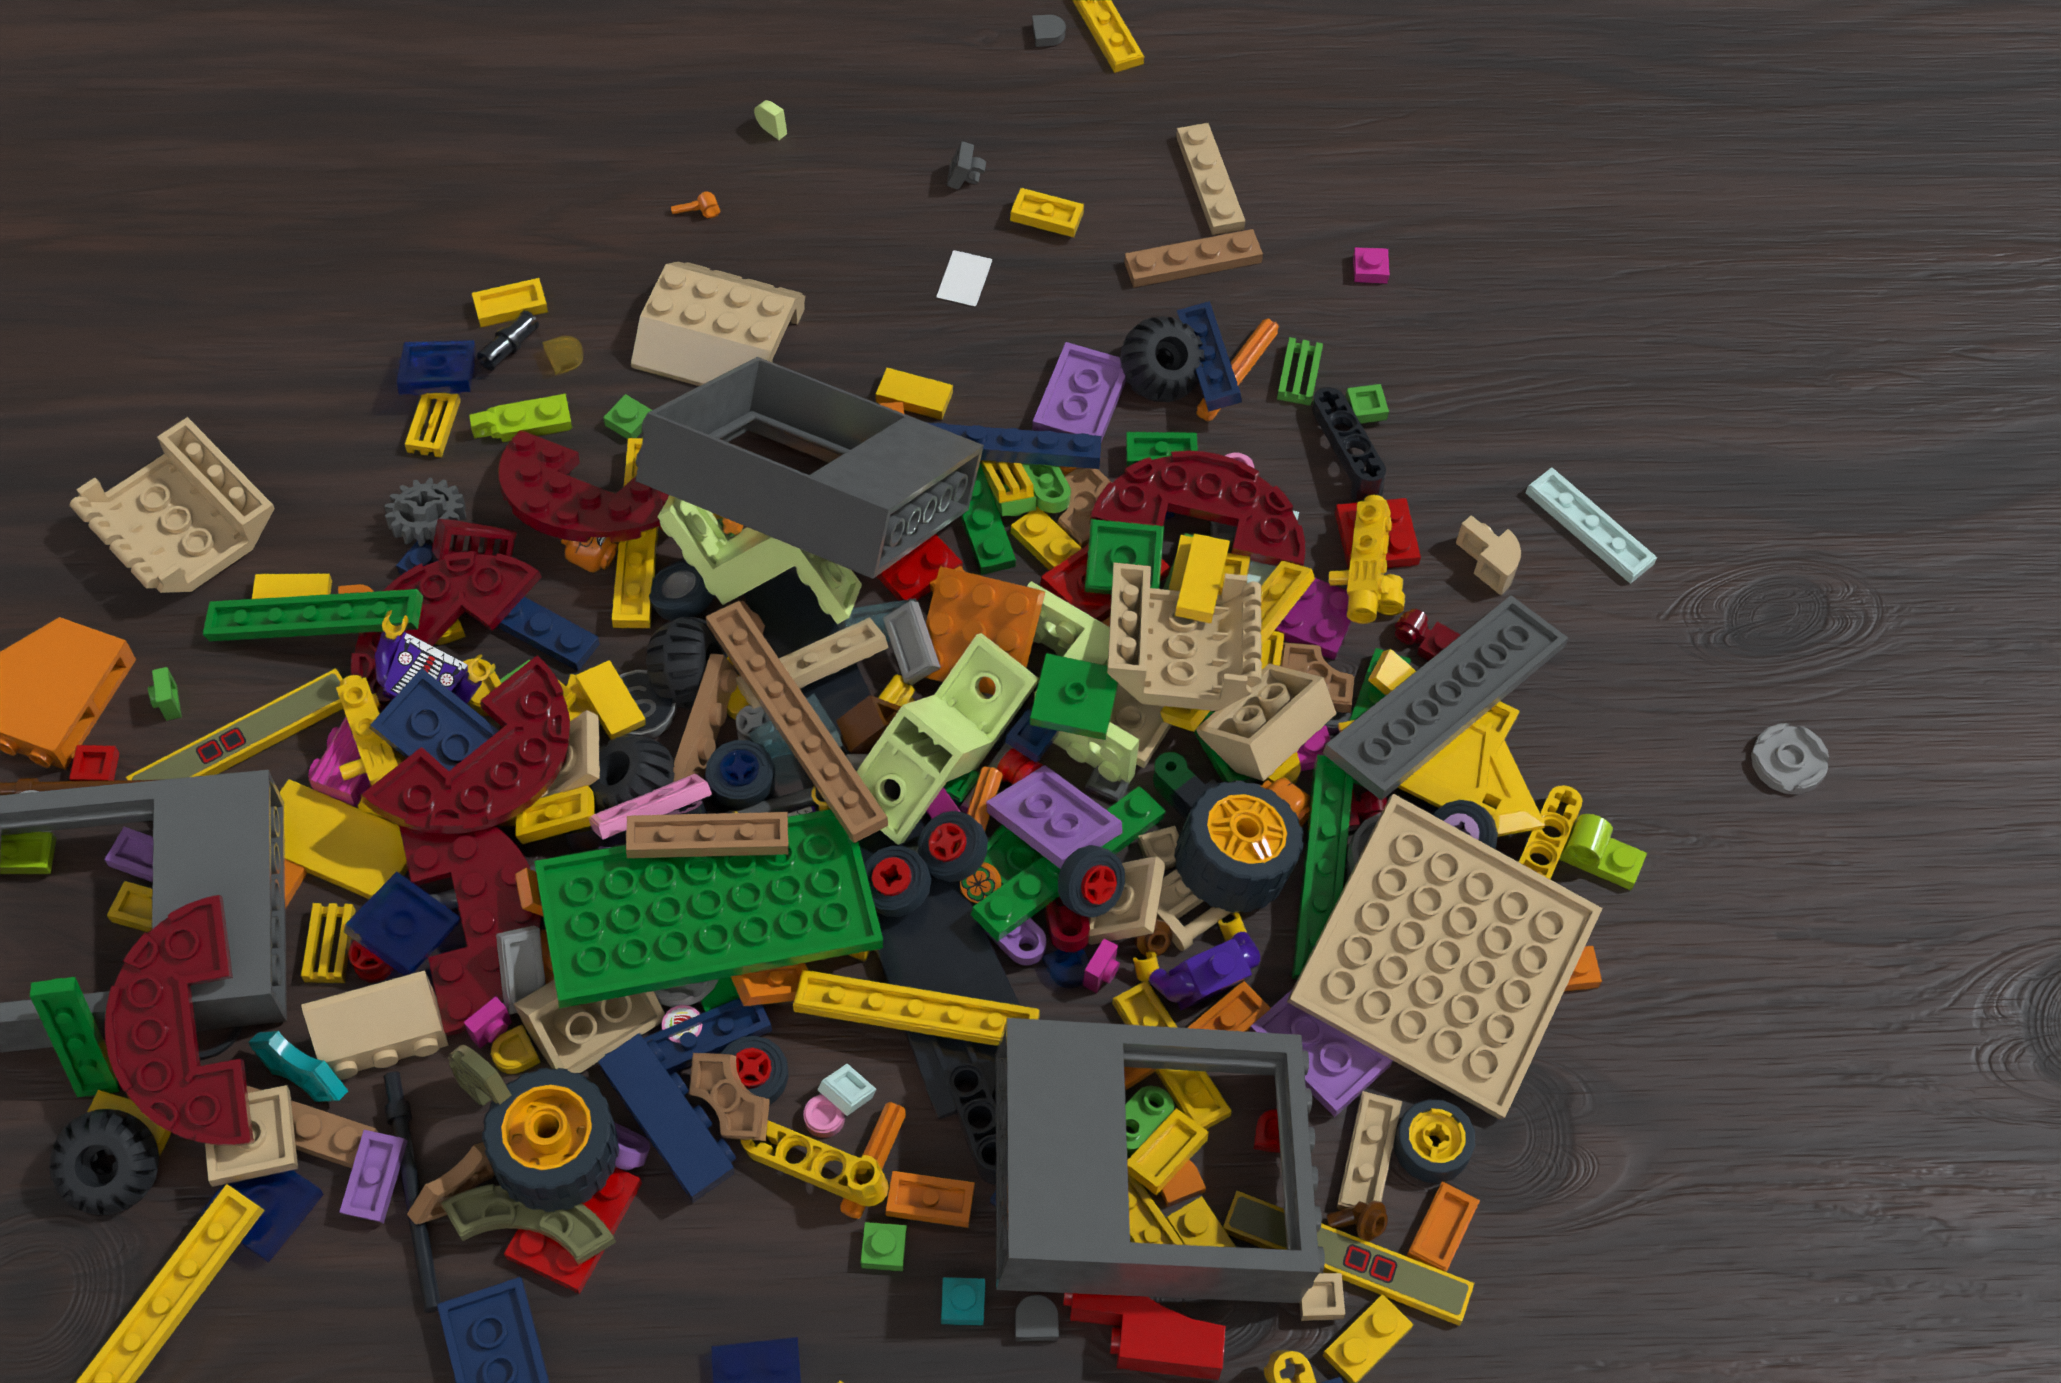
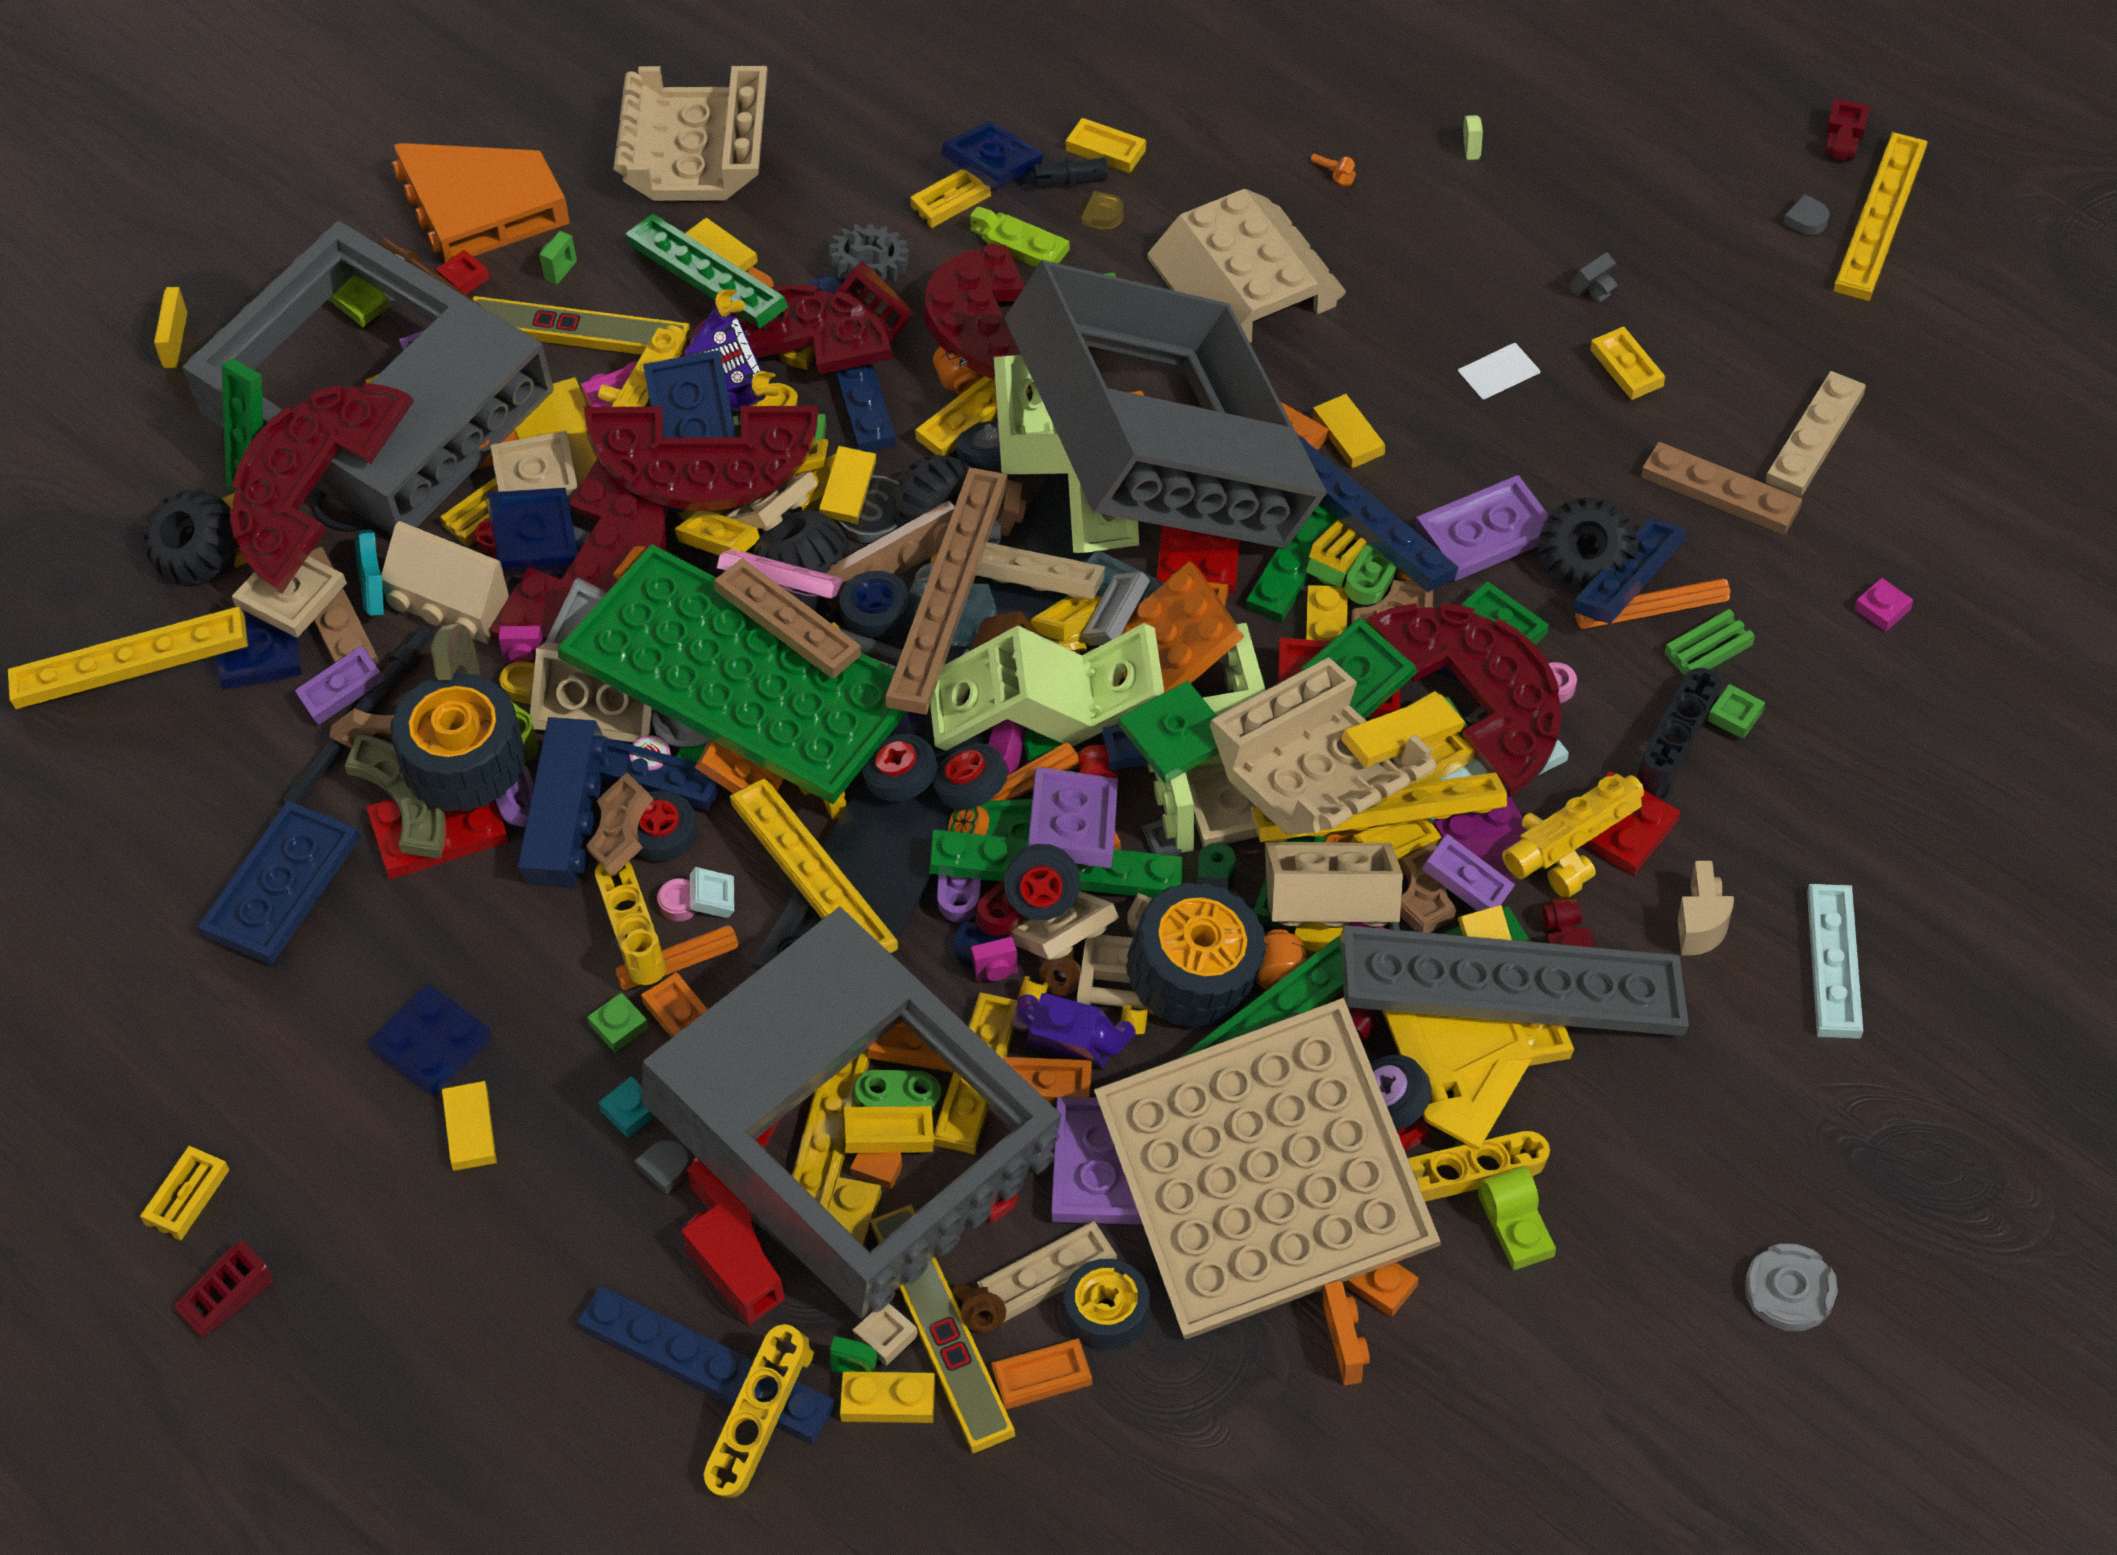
camera: 50 degrees right, 5 degrees down
(345, 875) = (535, 464): none -> tan plate
(881, 675) = (1065, 617): none -> yellow tile
(1320, 1336) = (851, 1356): none -> green tile
(1340, 647) = (1467, 875): none -> medium lavender plate
(1593, 1024) = (1341, 1316): none -> orange plate

